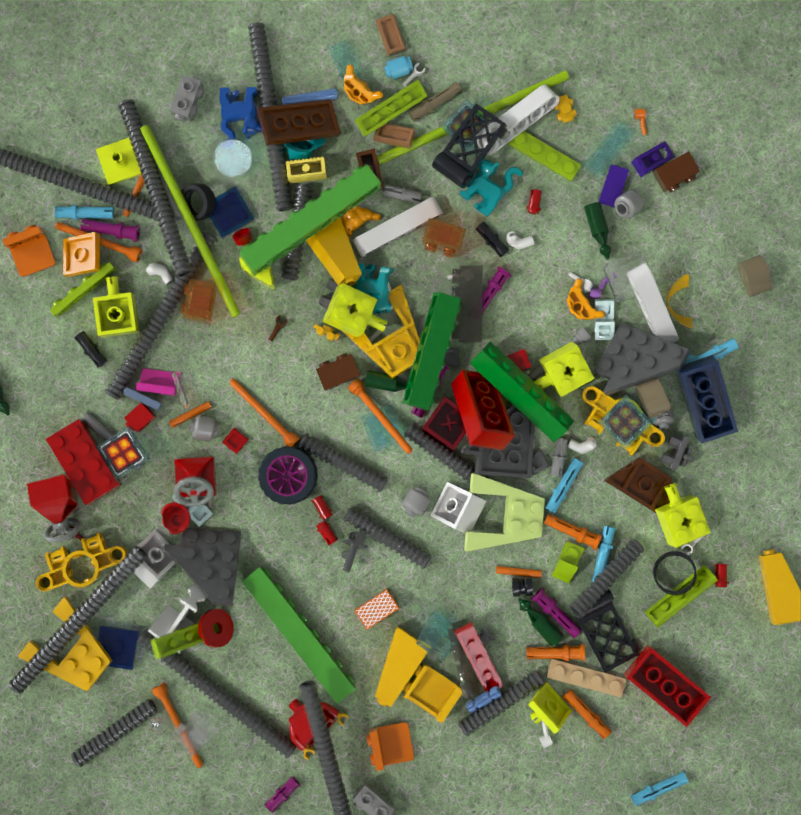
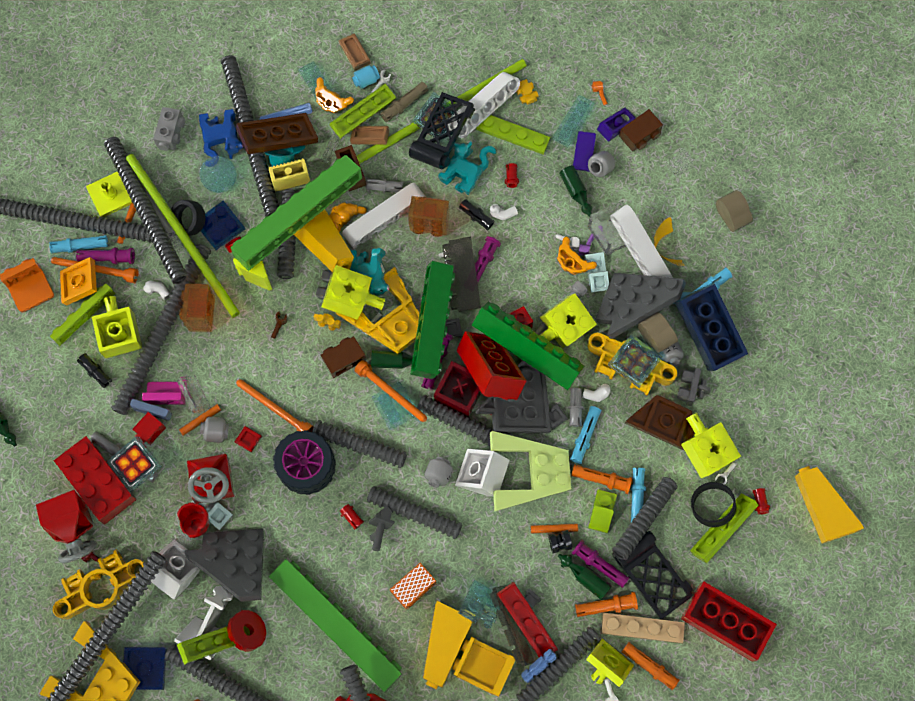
camera: 10 degrees left, 15 degrees down
(322, 507) = (343, 491): red pin -> none

